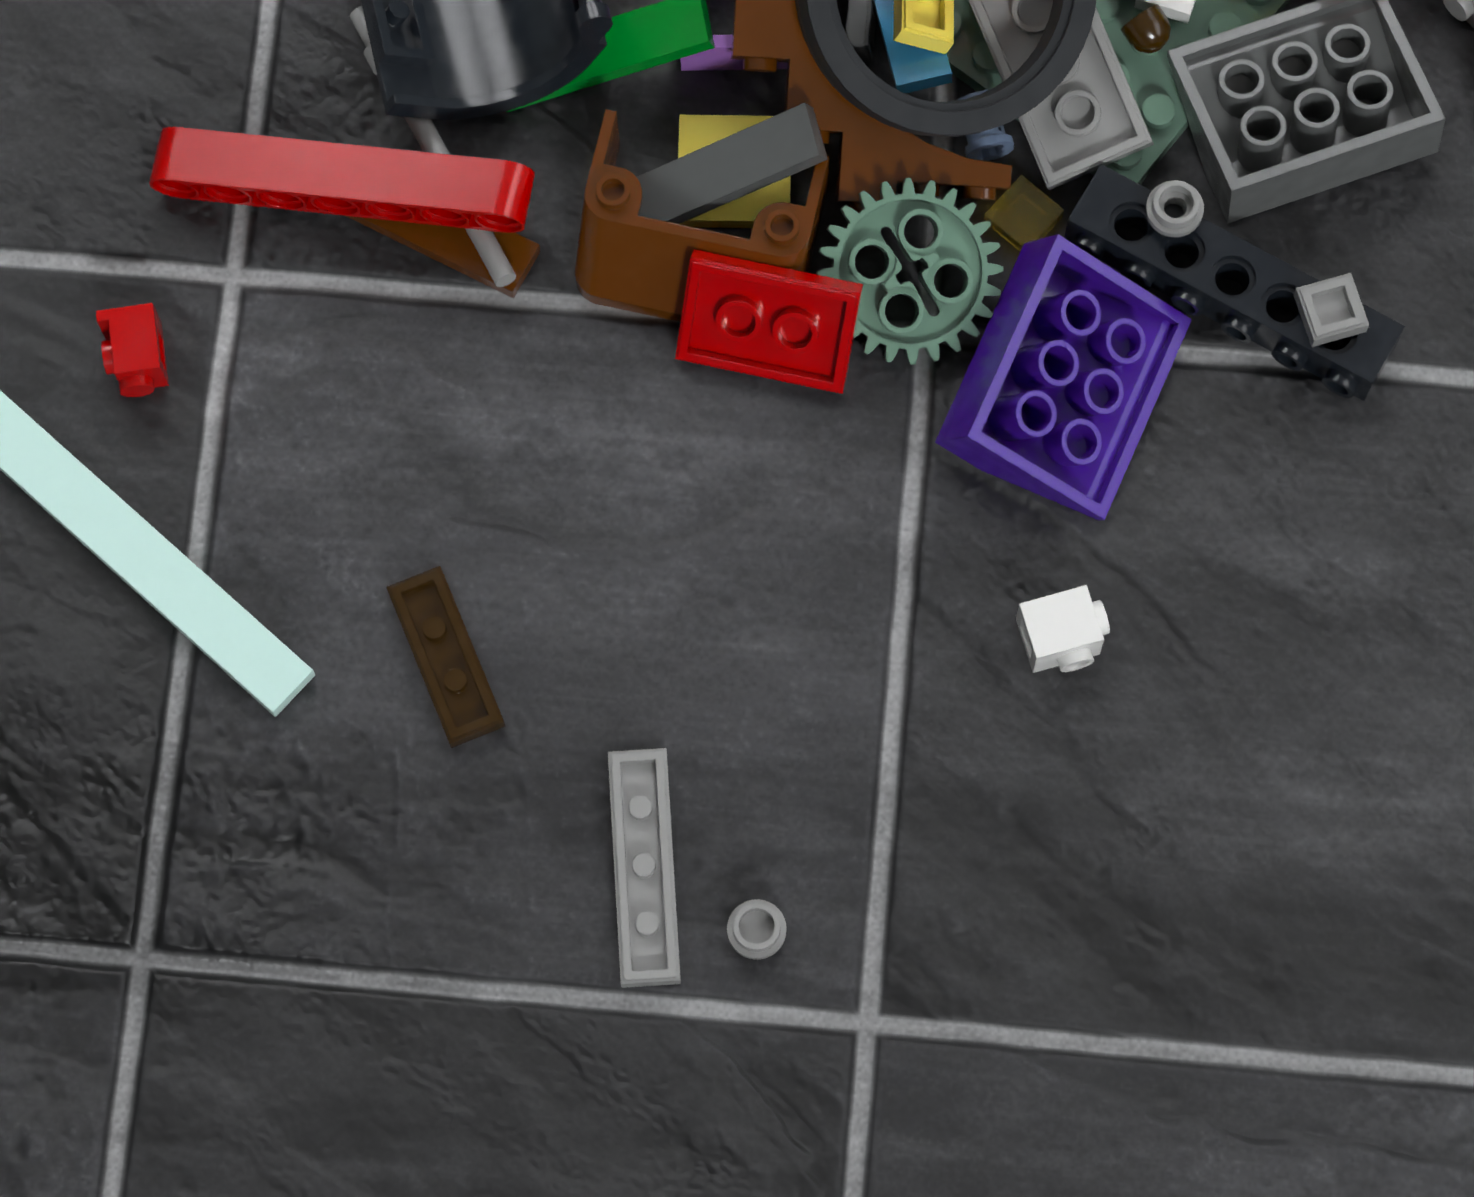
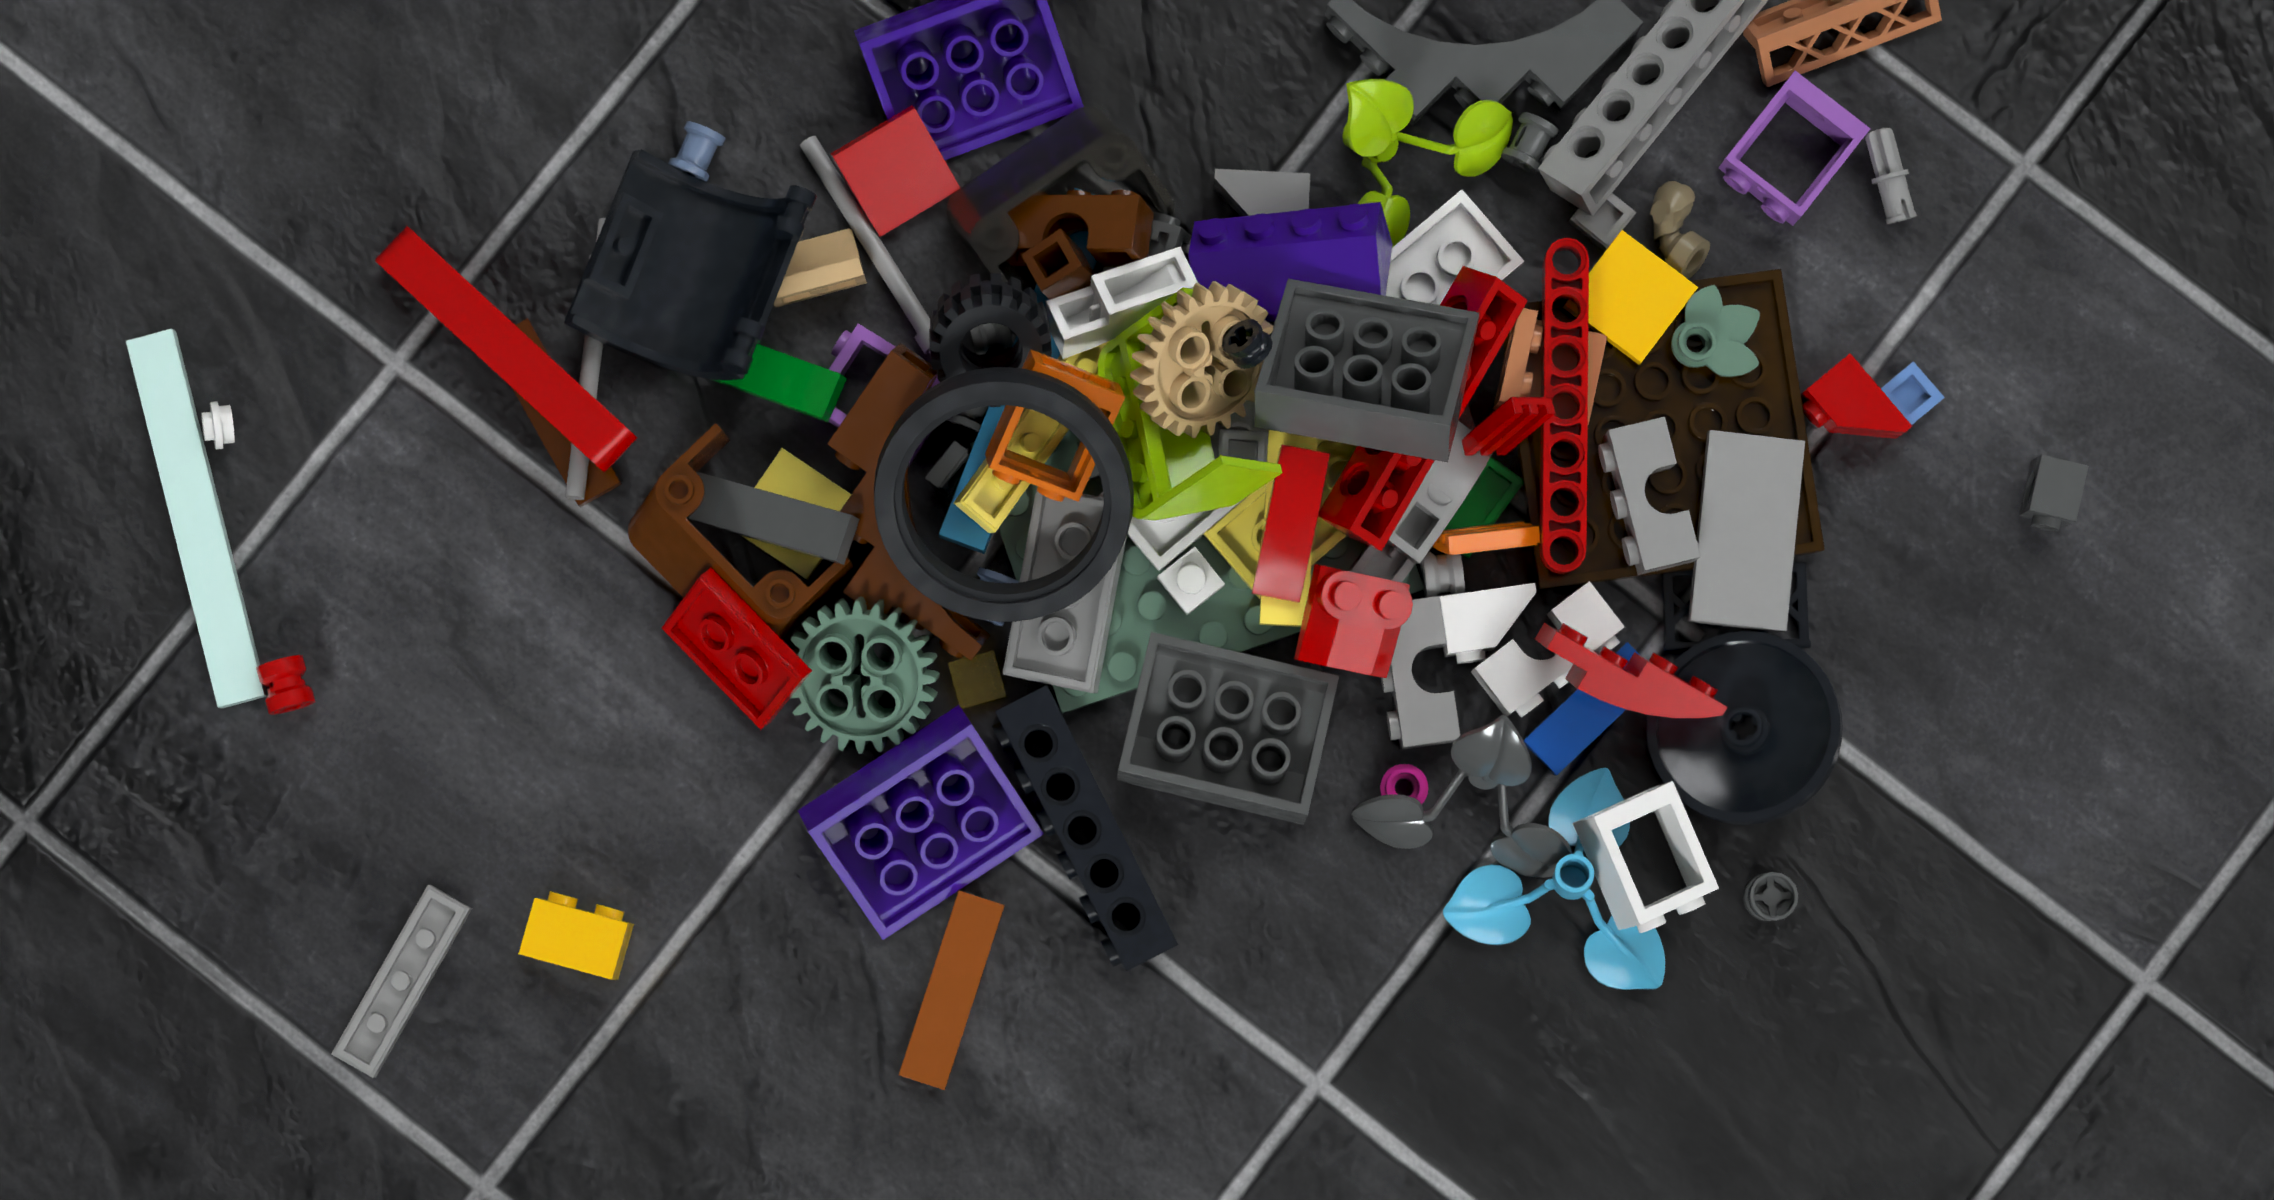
camera: 30 degrees right, 10 degrees up
(92, 436) = (218, 425): none -> white plate
(134, 348) = (287, 379): red brick -> none
(329, 644) = (286, 687): none -> red wheel
(445, 656) = (363, 741): dark brown tile -> none
(756, 929) = (448, 1075): light grey plate -> none
(797, 704) = (577, 937): none -> yellow brick
(1062, 629) = (795, 1004): white brick -> none
(1148, 30) = (1150, 605): dark brown hinge -> none
(1174, 193) = (1066, 740): light grey plate -> none
(1207, 524) = (951, 990): none -> dark orange tile
(1331, 309) = (1131, 900): light grey tile -> none

